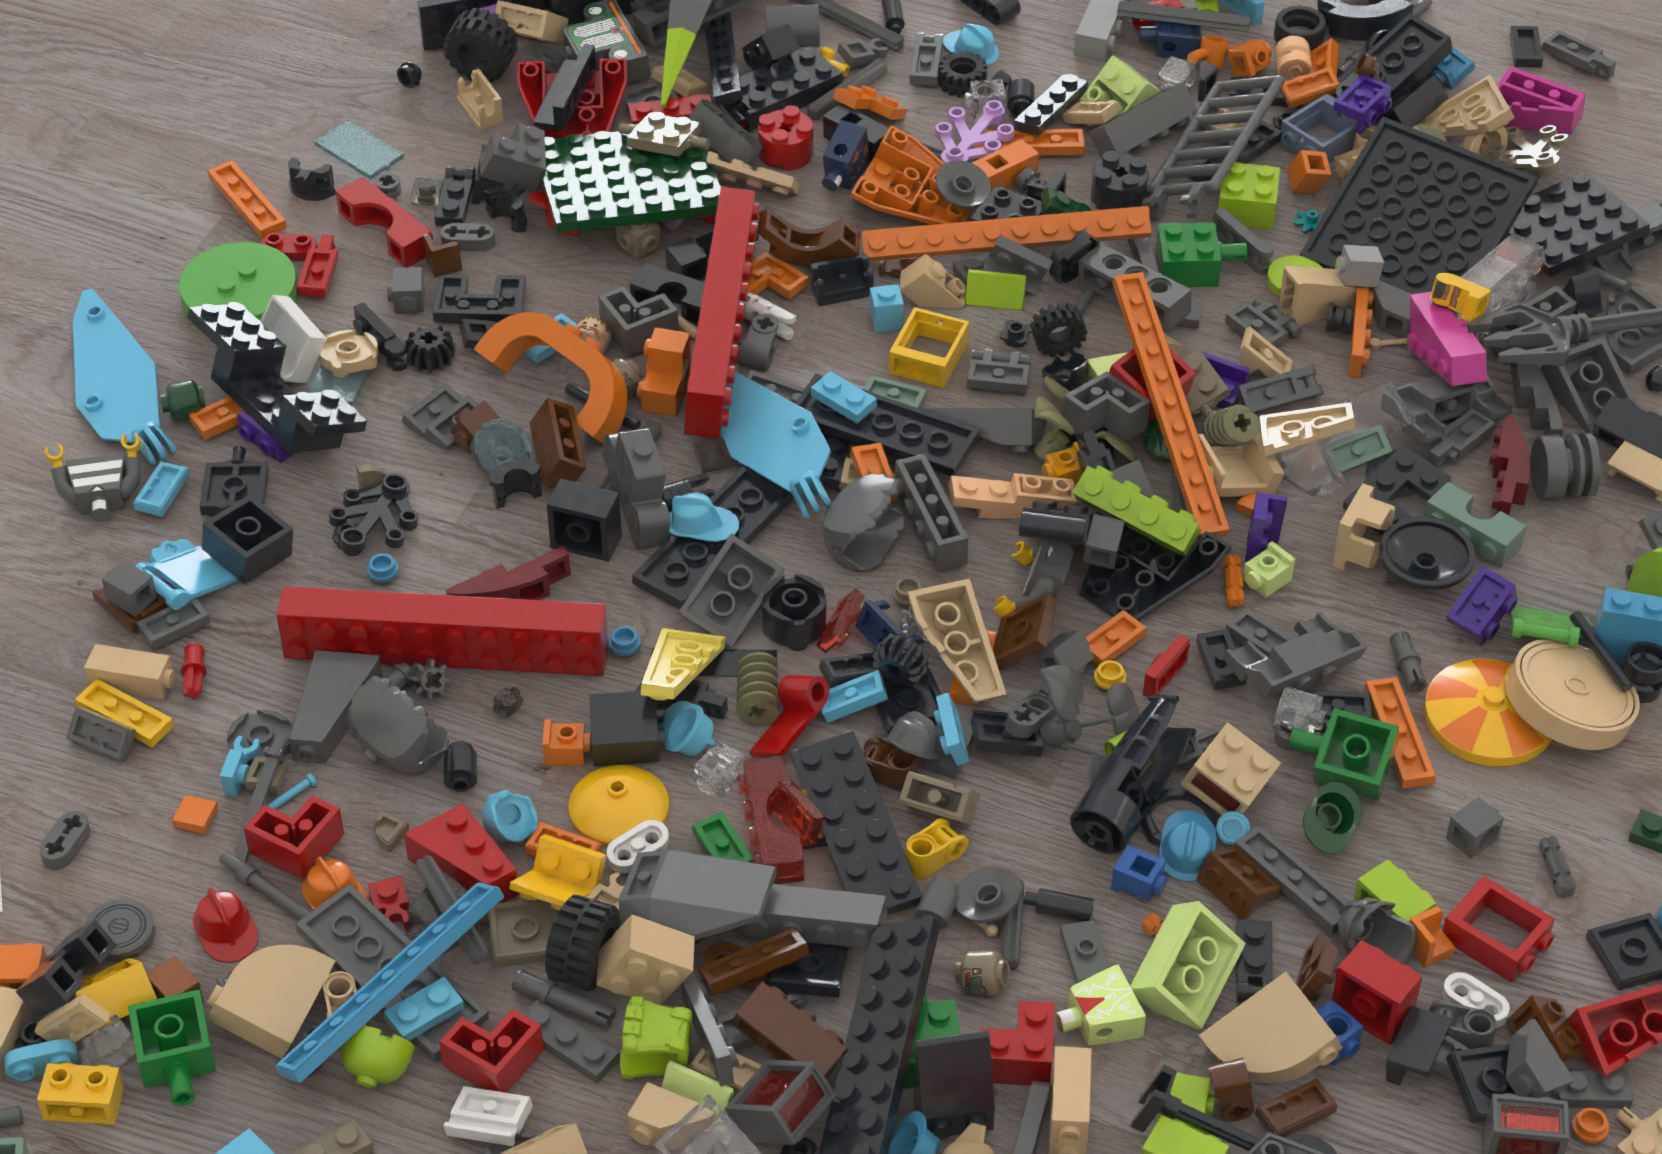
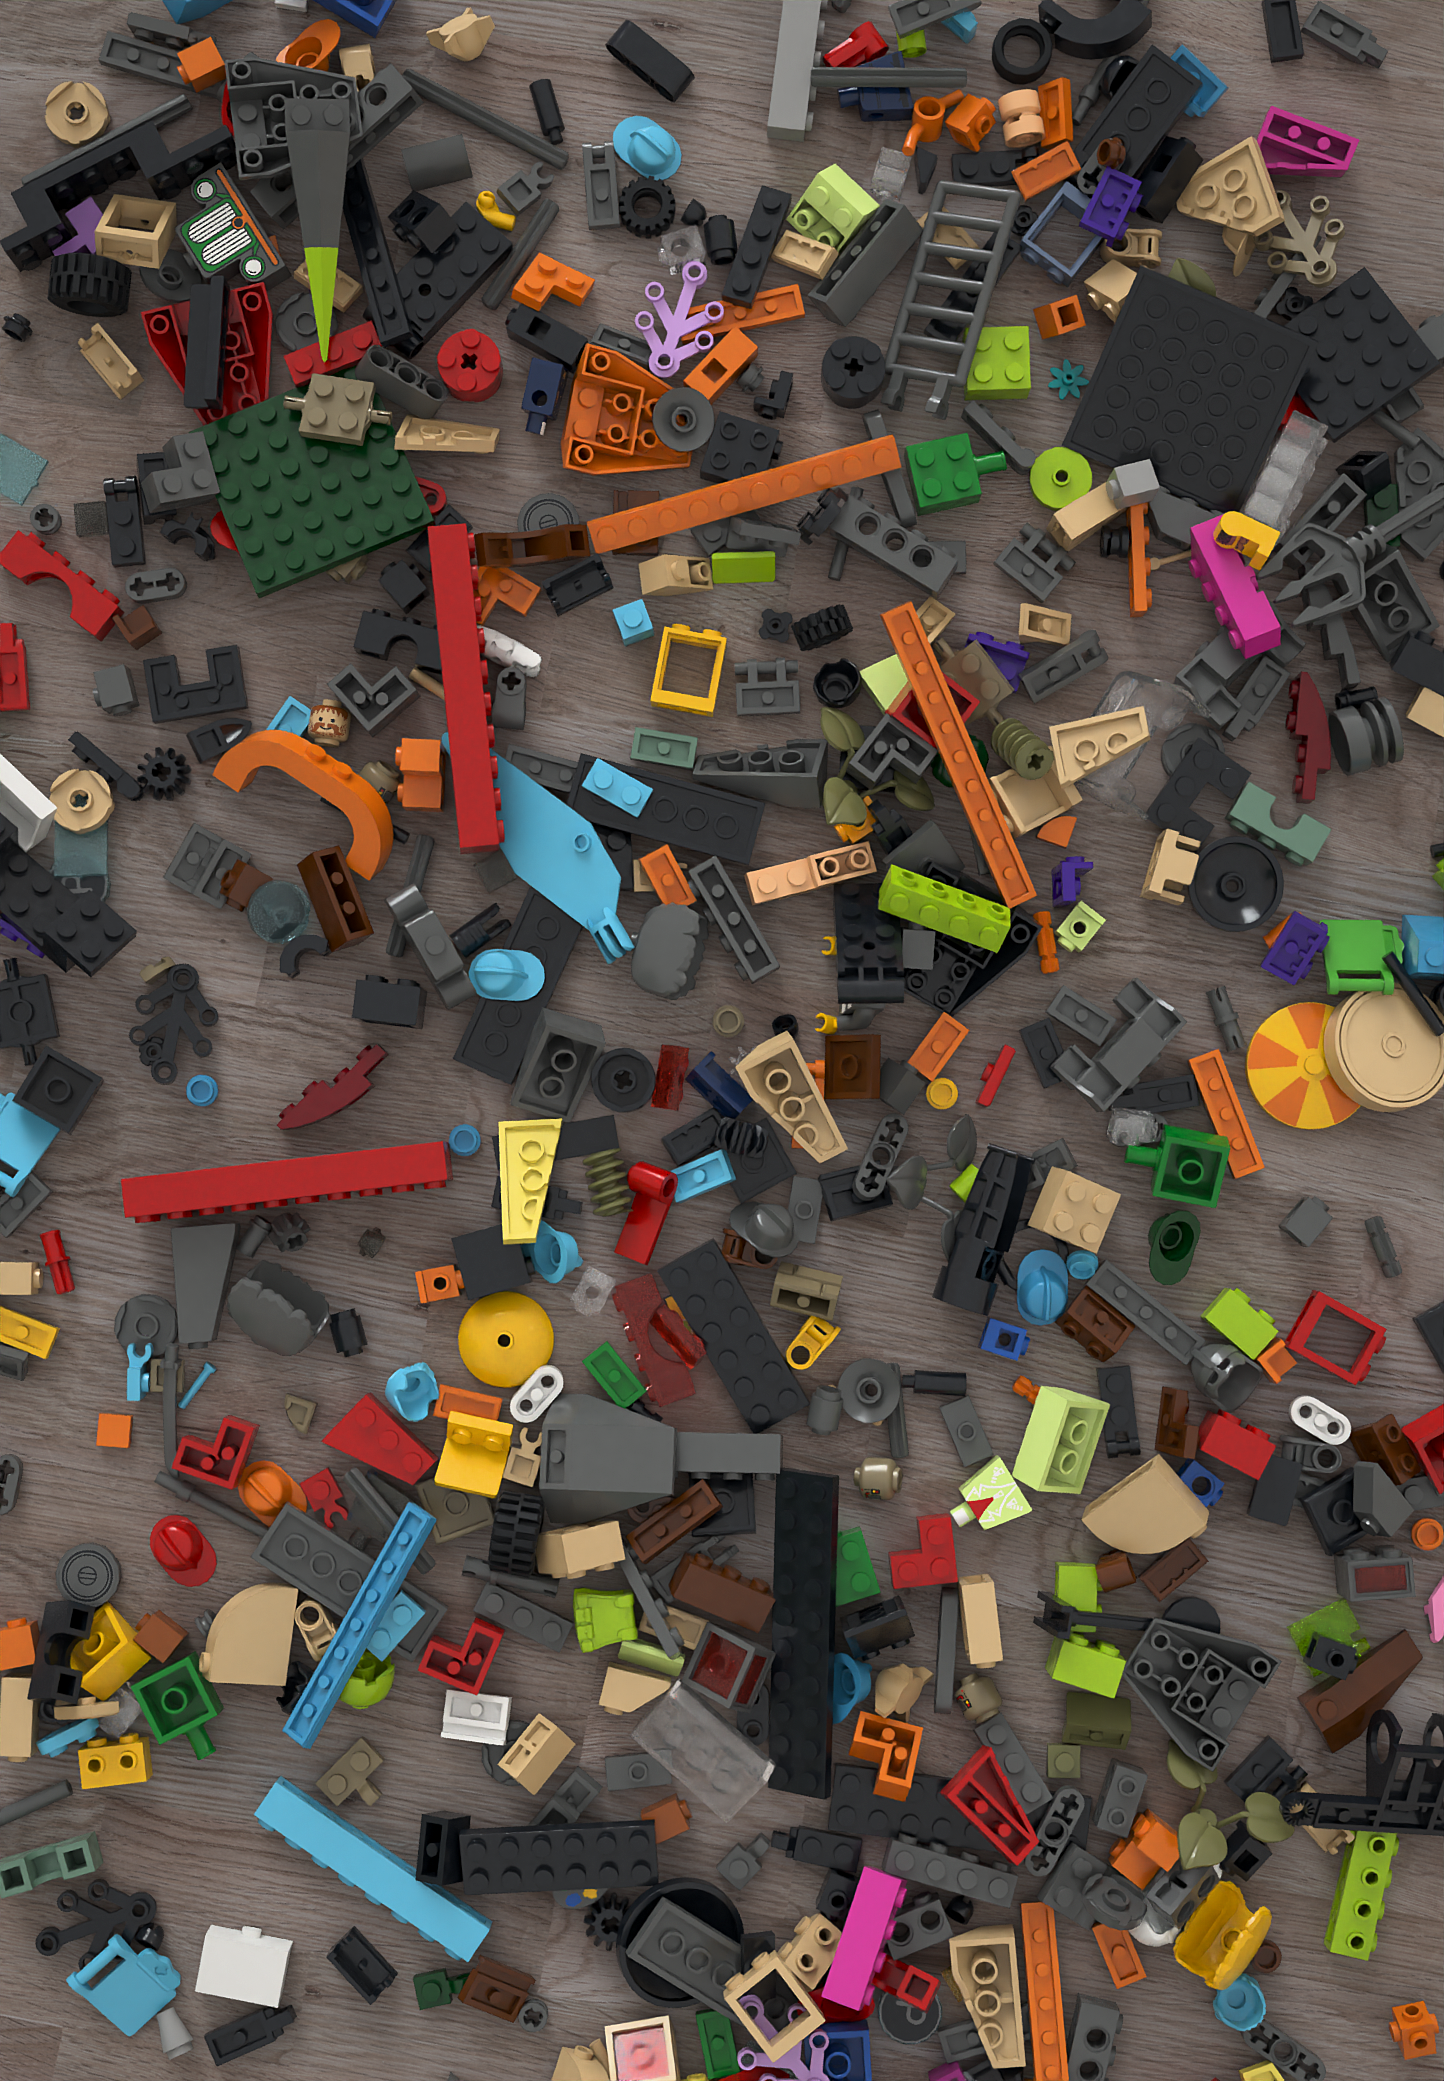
camera: 10 degrees left, 40 degrees up
(949, 721) = (801, 1202): medium azure plate -> none
(1059, 202) = (802, 430): dark green plate -> none
(1359, 449) = (1164, 743): sand green plate -> none

